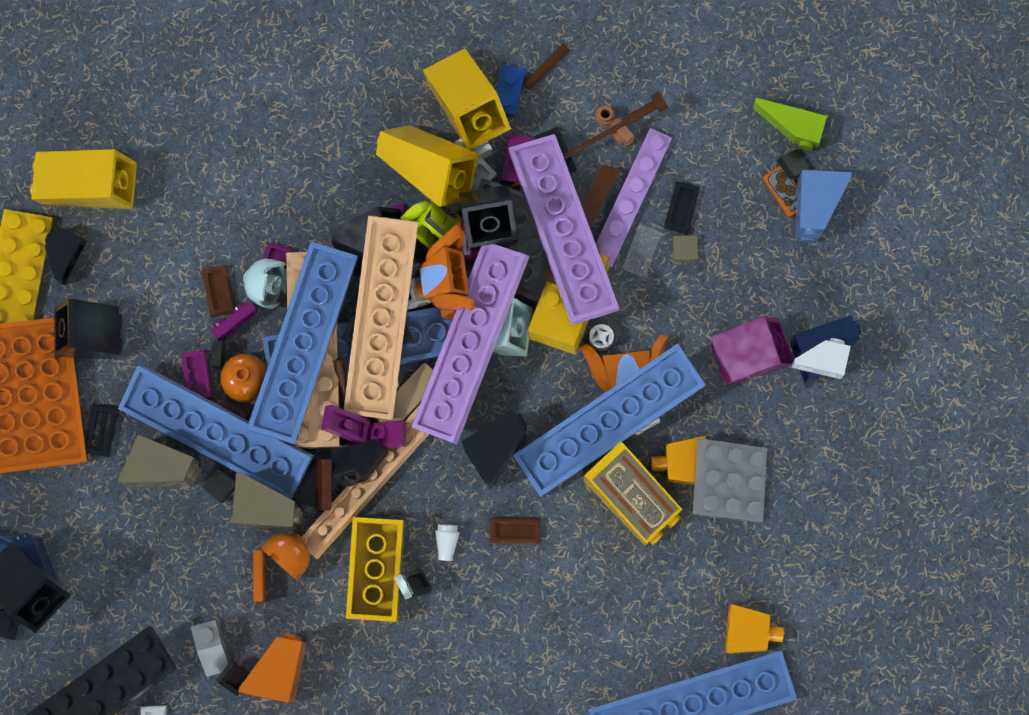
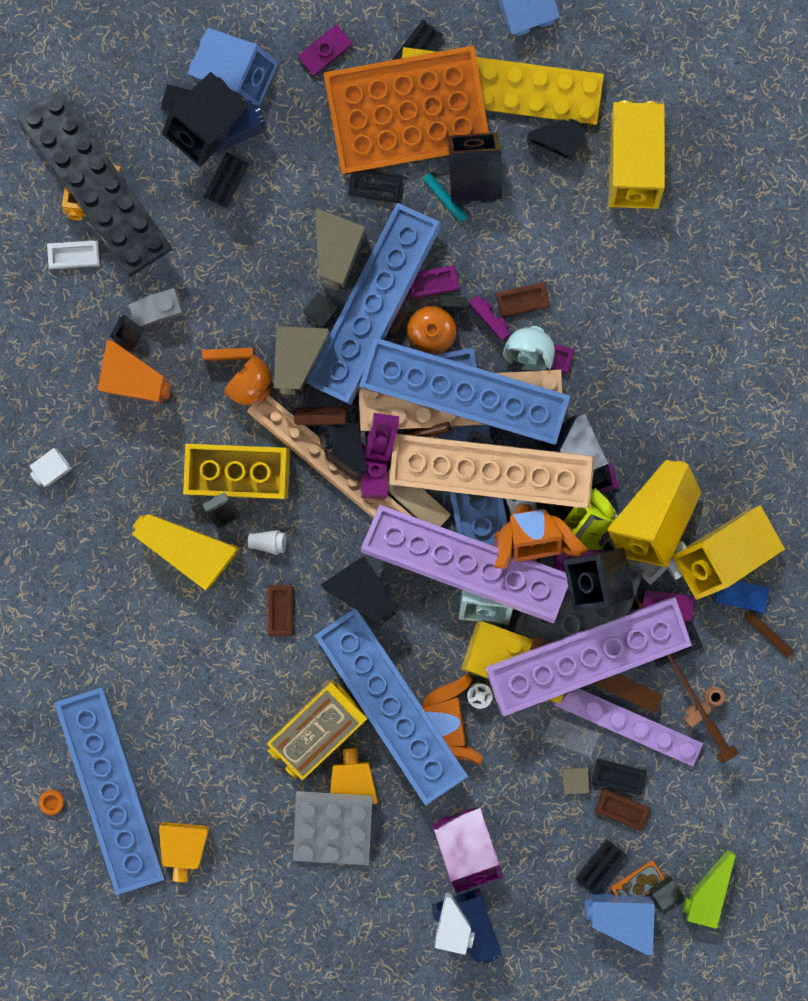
camera: 90 degrees right, 10 degrees up
(69, 566) = (208, 195): none -> black tile
(115, 363) = (444, 197): none -> teal piece
(452, 616) = (187, 549): none -> yellow slope
(713, 205) = (622, 809): none -> copper tile
(752, 213) = (587, 883): none -> black tile

